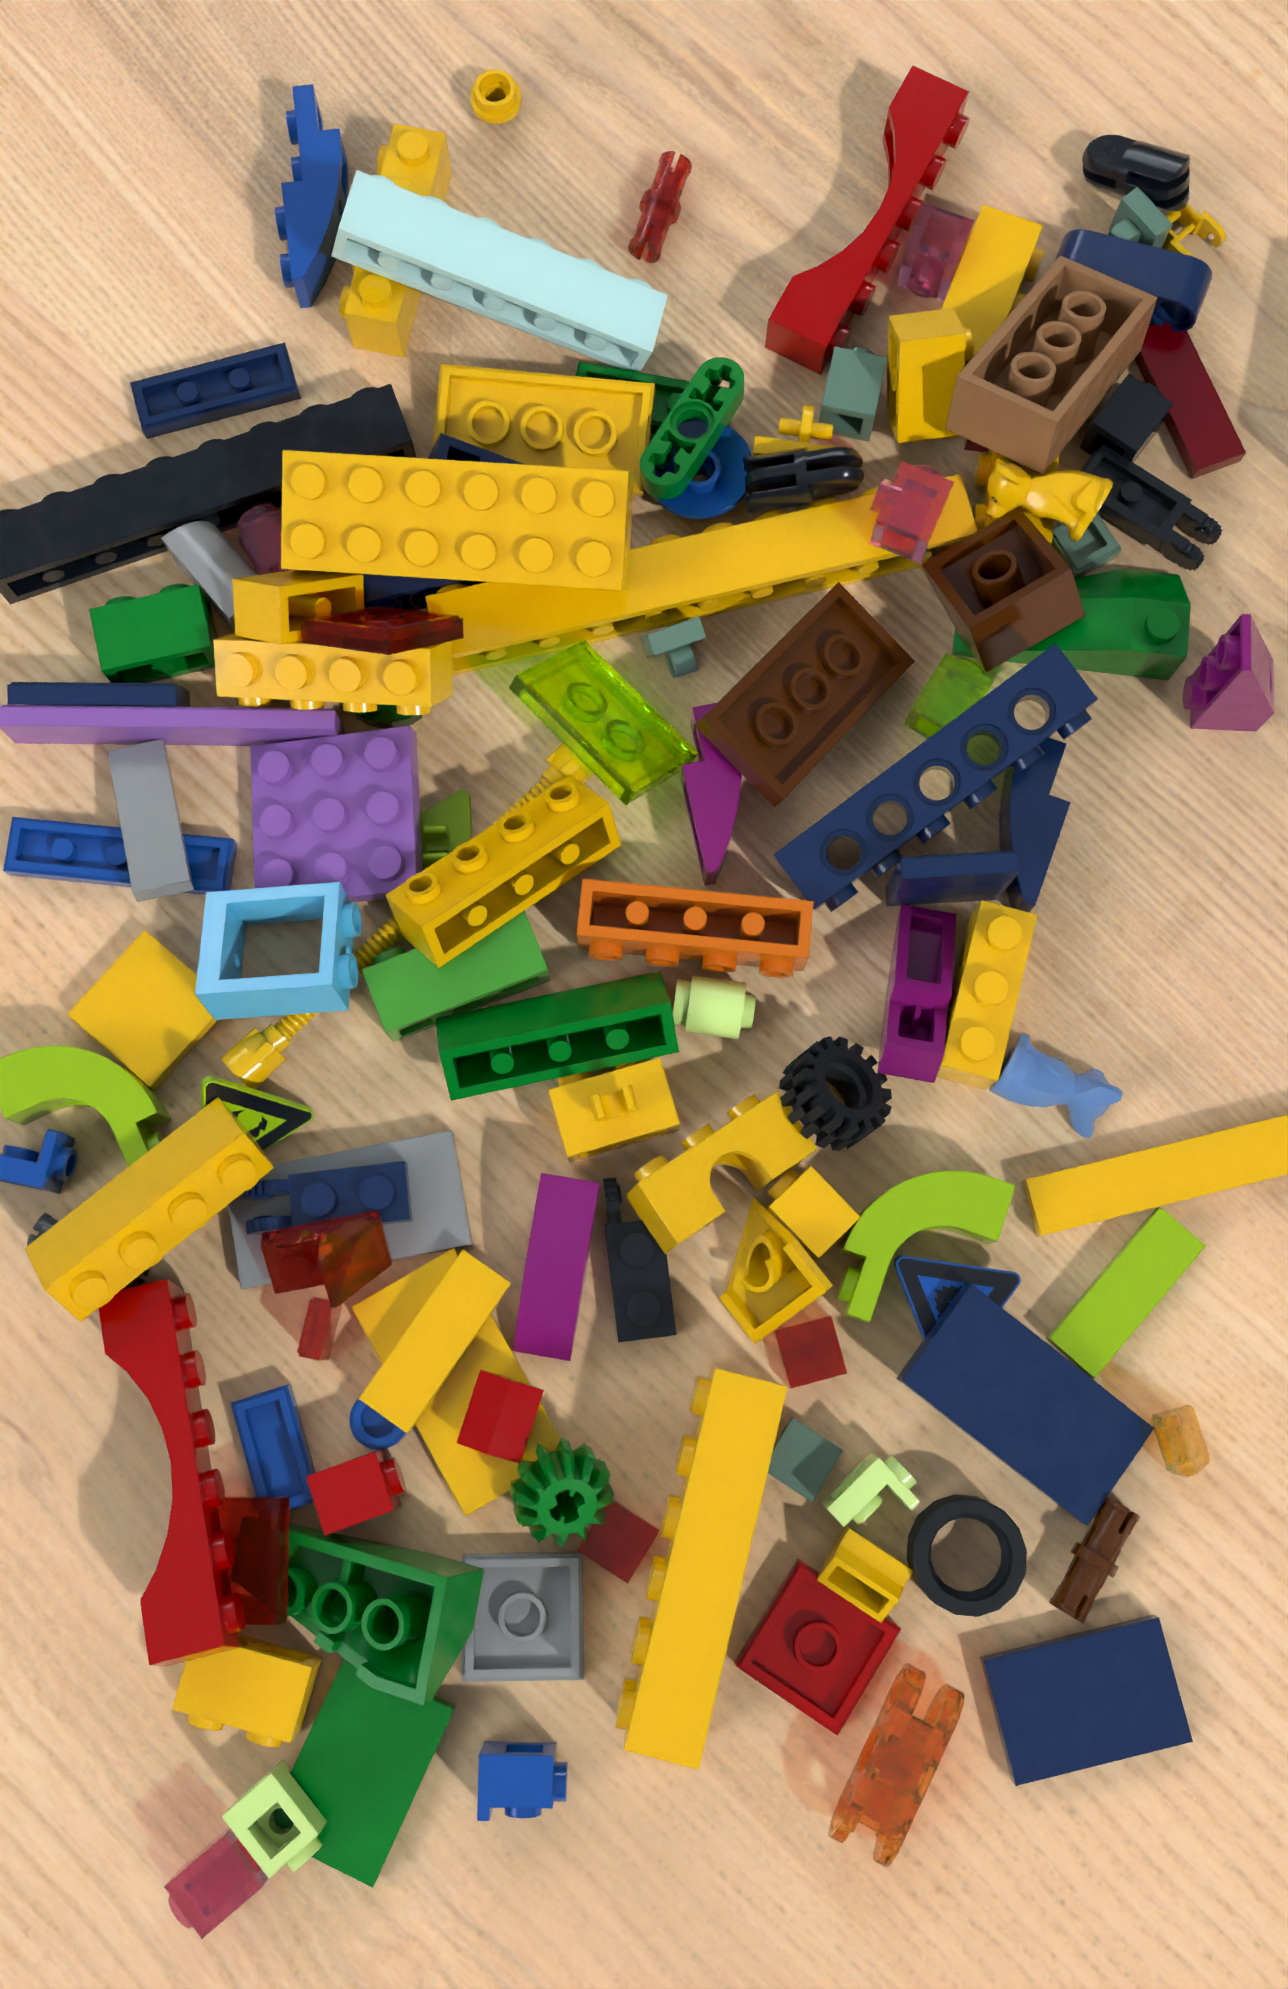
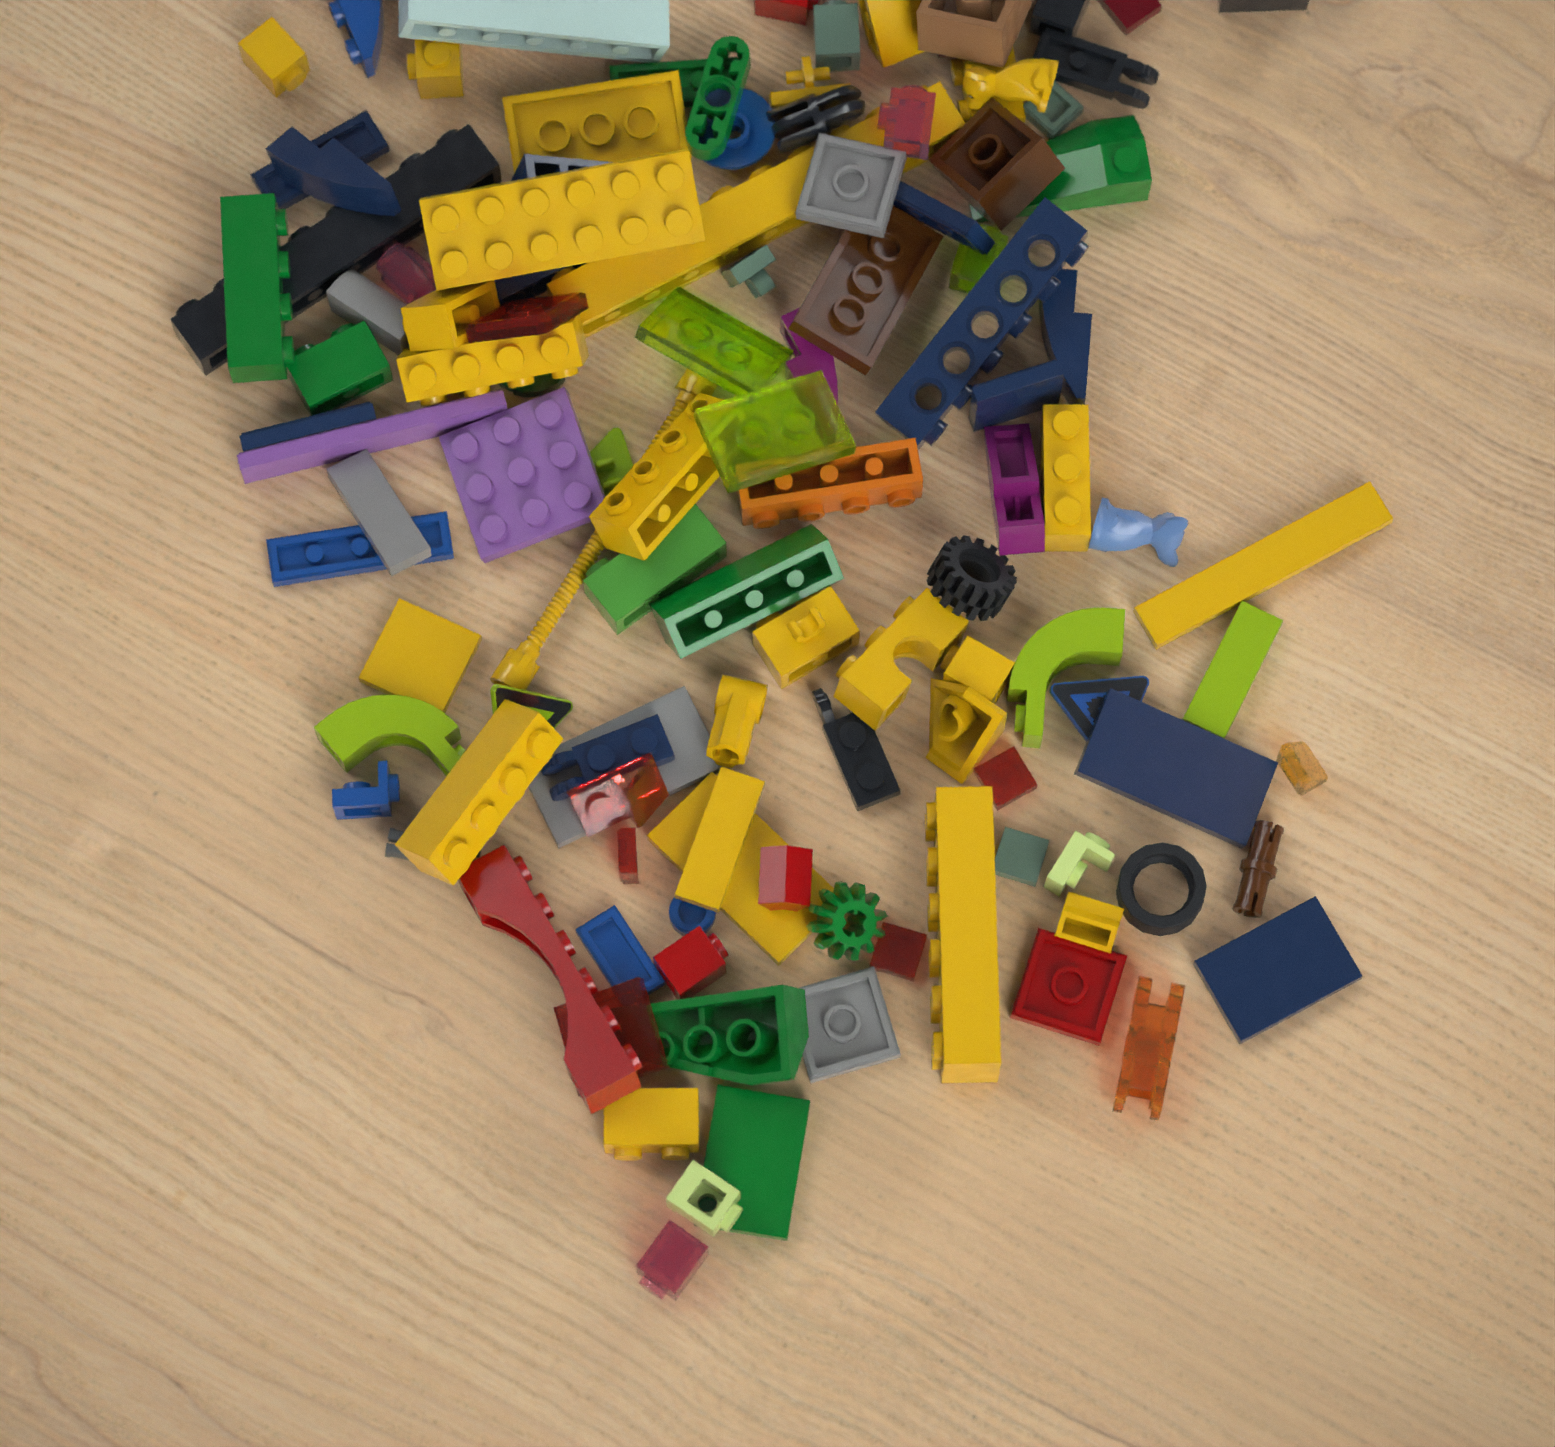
camera: 15 degrees left, 5 degrees down
(73, 511) = (254, 288): none -> green brick
(196, 254) = (274, 57): none -> yellow brick
(208, 400) = (331, 174): none -> dark blue slope
(222, 950) = (523, 614): medium azure window -> none
(504, 1180) = (737, 710): none -> yellow piece
(519, 1778) = (874, 1132): blue brick -> none
(556, 1266) = (795, 763): magenta slope -> none
(641, 849) = (774, 431): none -> clear neon green tile
(713, 1006) = (860, 540): yellowish green brick -> none
(820, 570) = (851, 185): none -> light grey tile
(913, 631) = (943, 218): none -> dark blue tile
(1233, 682) = (1193, 190): magenta slope -> none

